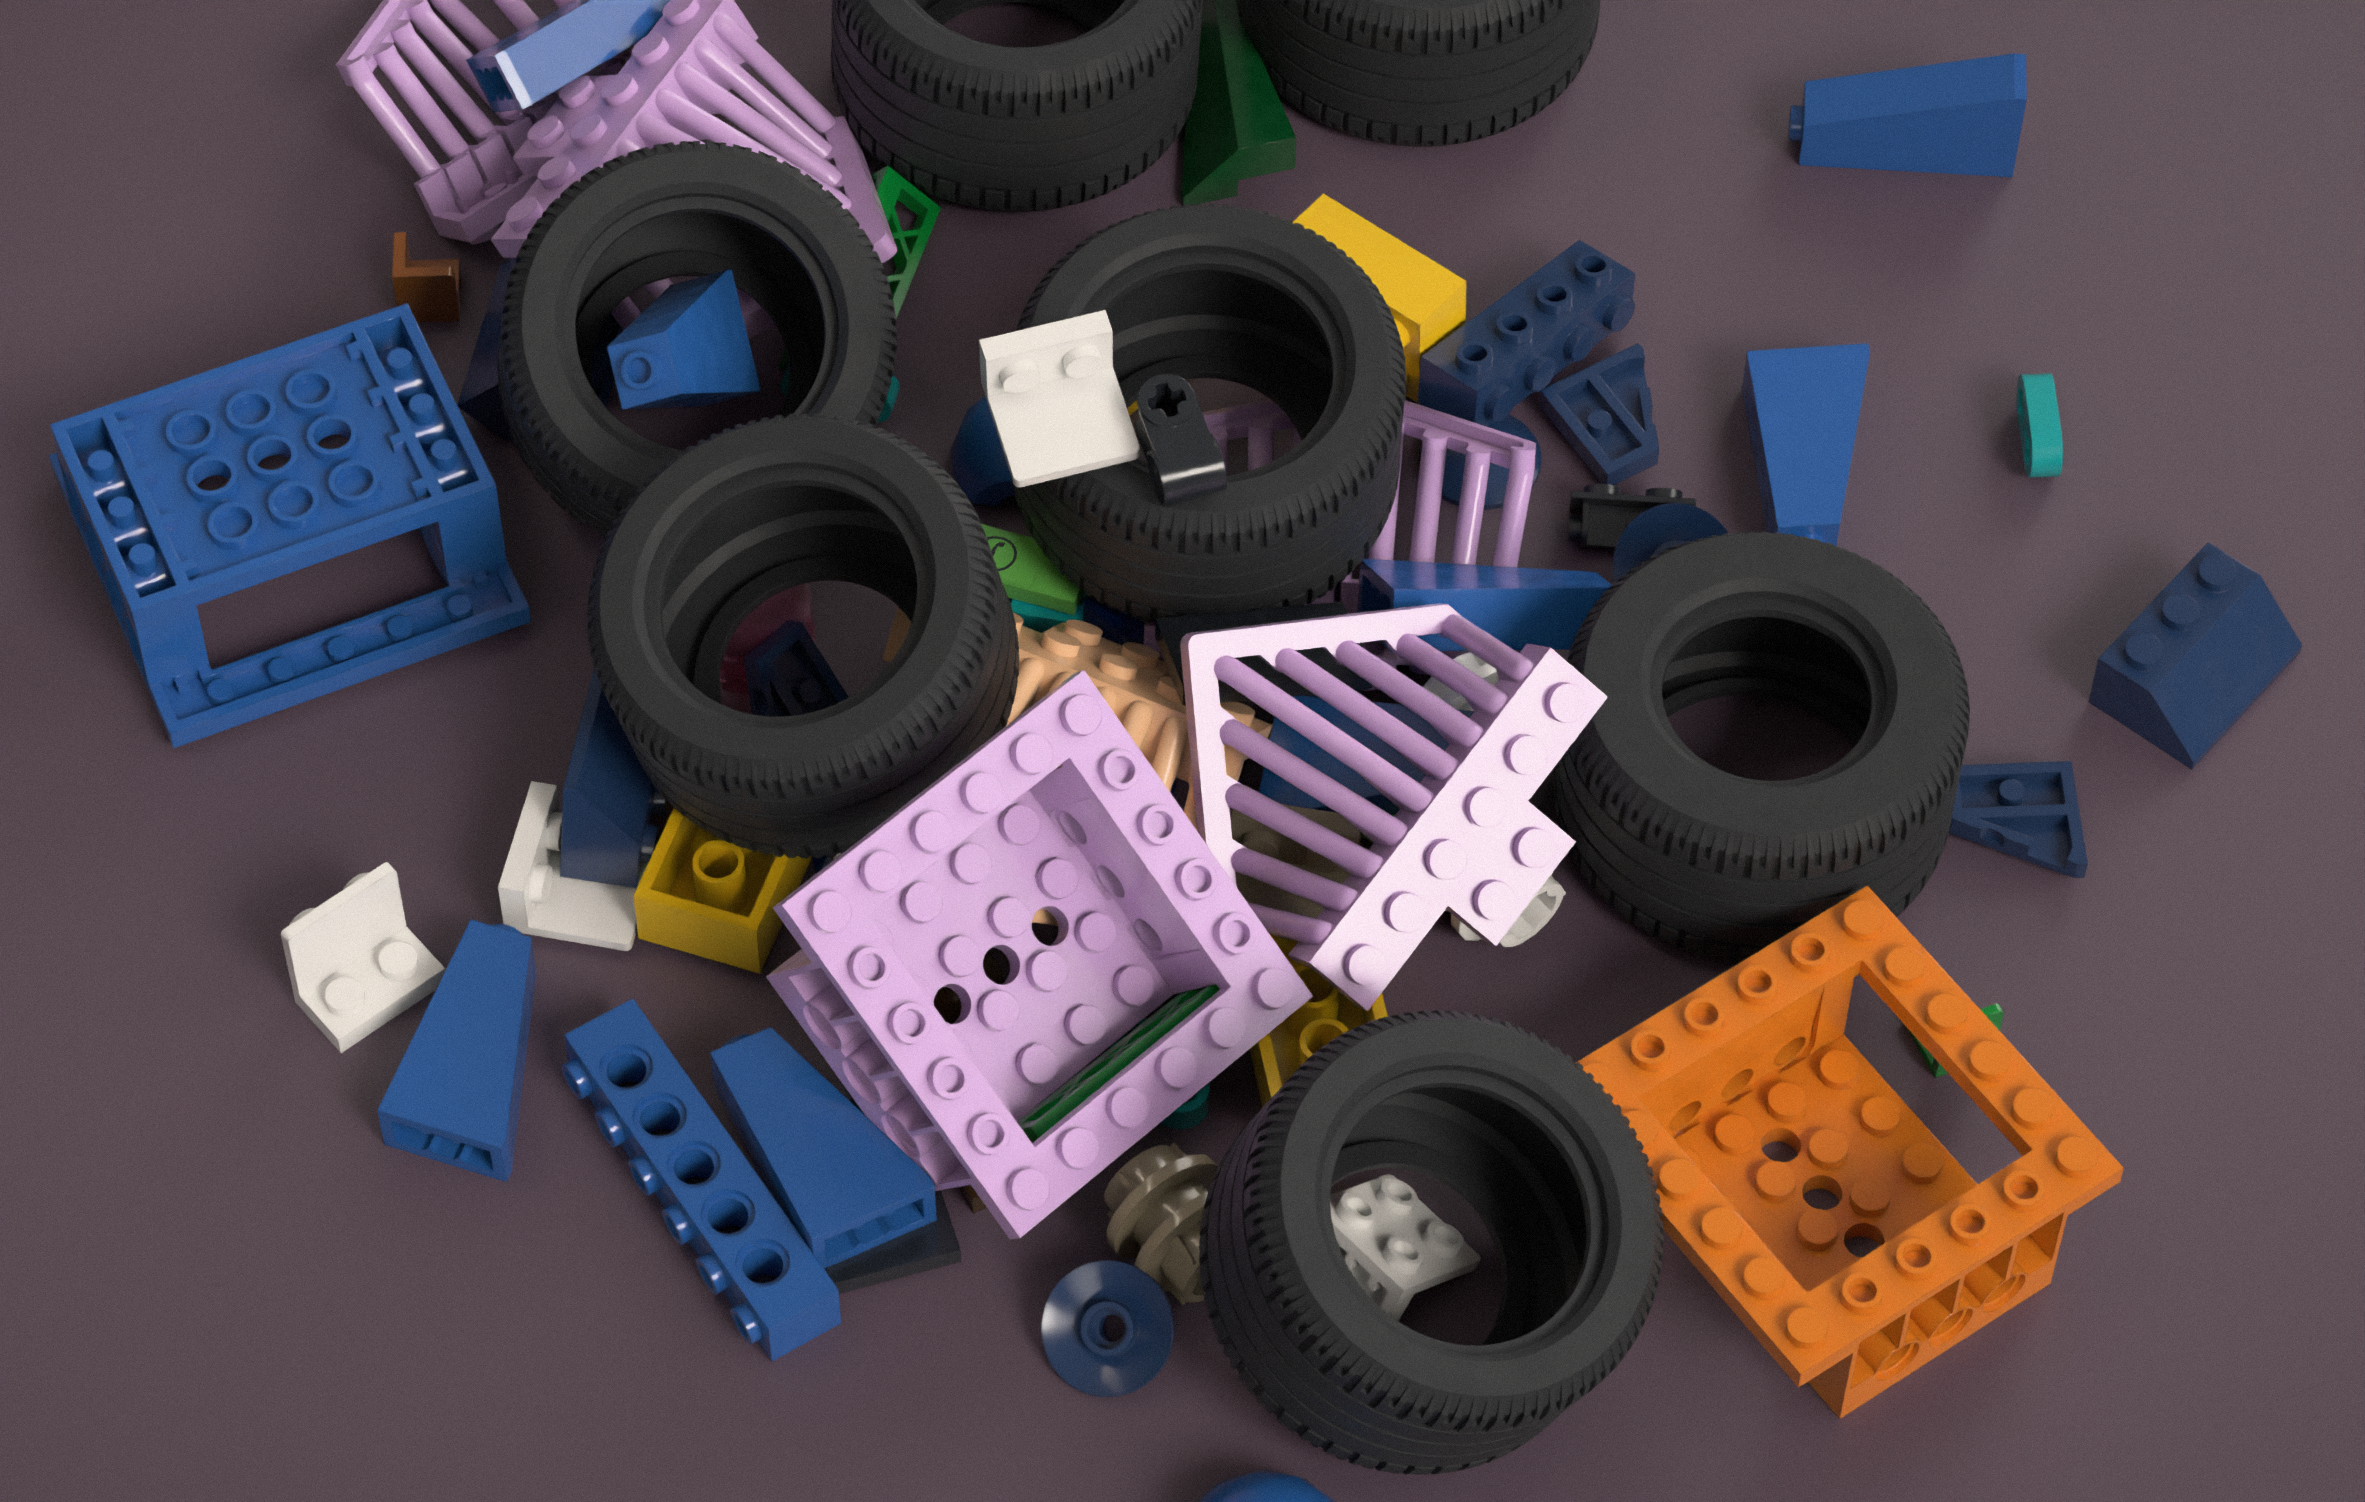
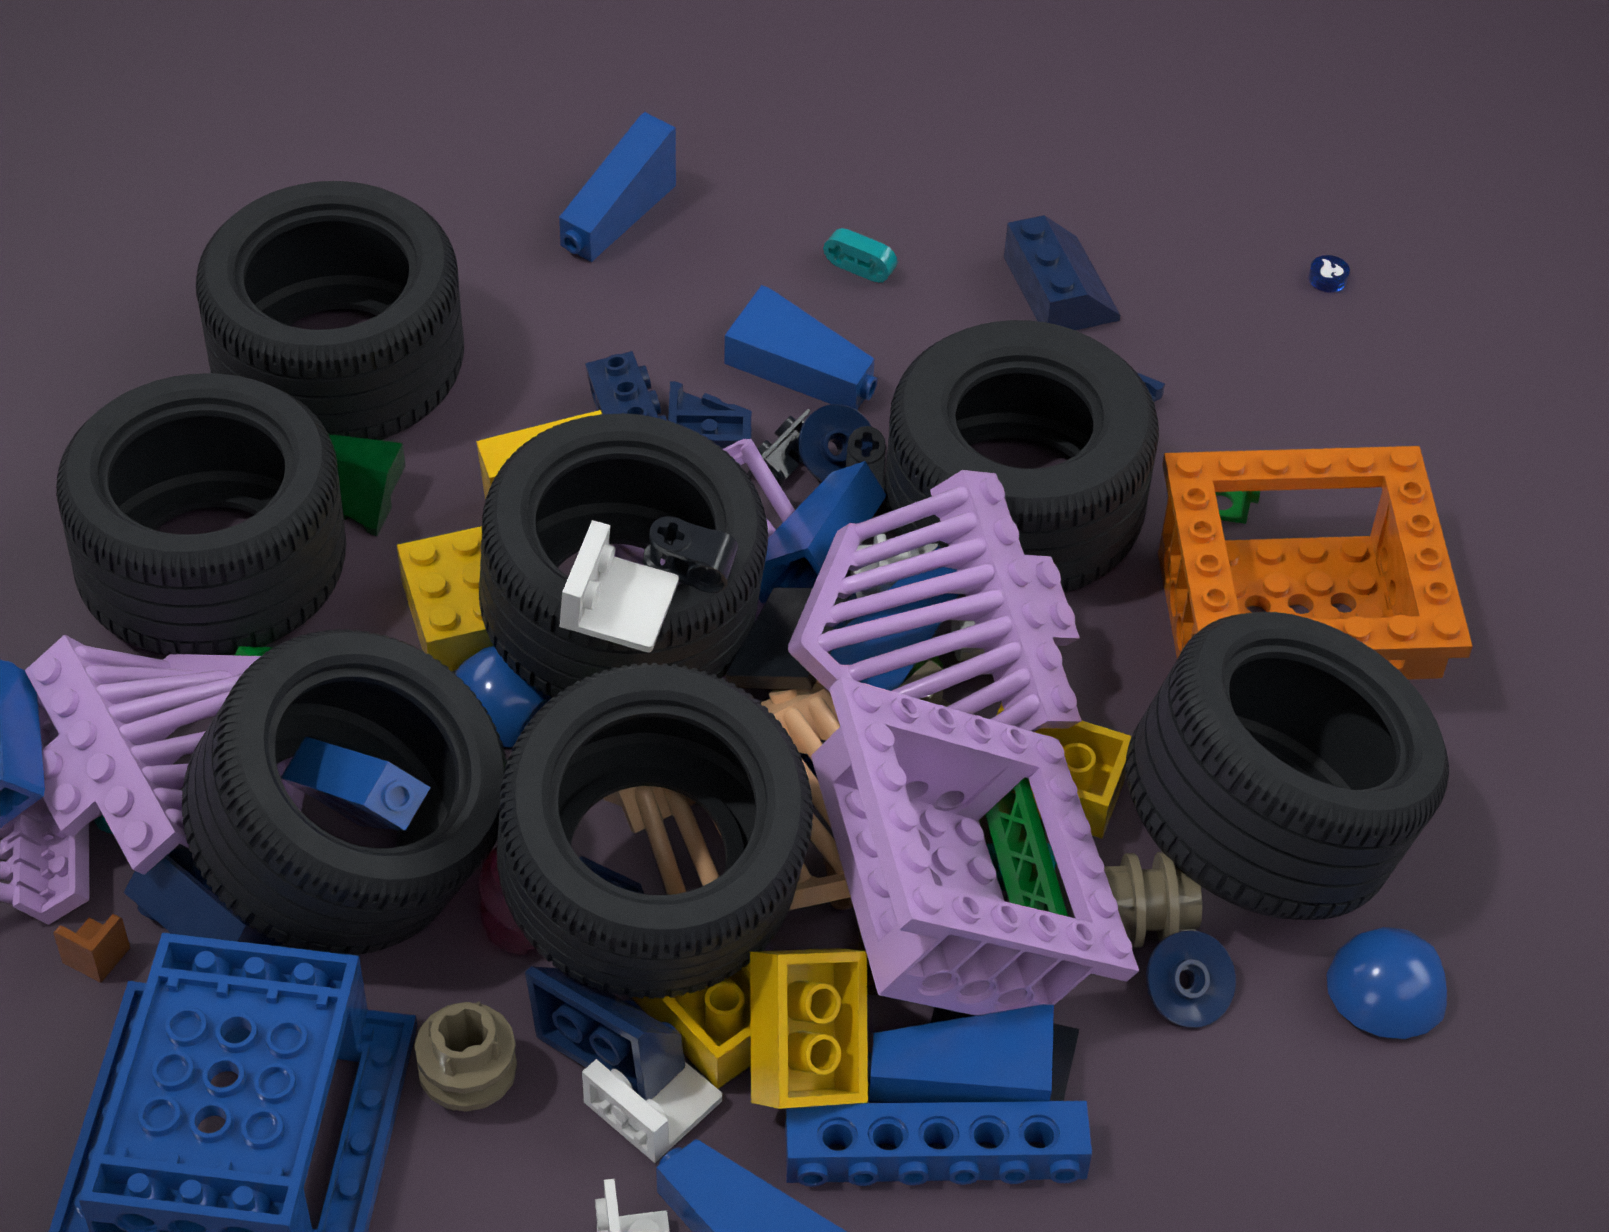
camera: 60 degrees left, 5 degrees down
(493, 673) = (466, 1056): none -> dark tan piece
(707, 955) = (808, 1027): none -> yellow brick

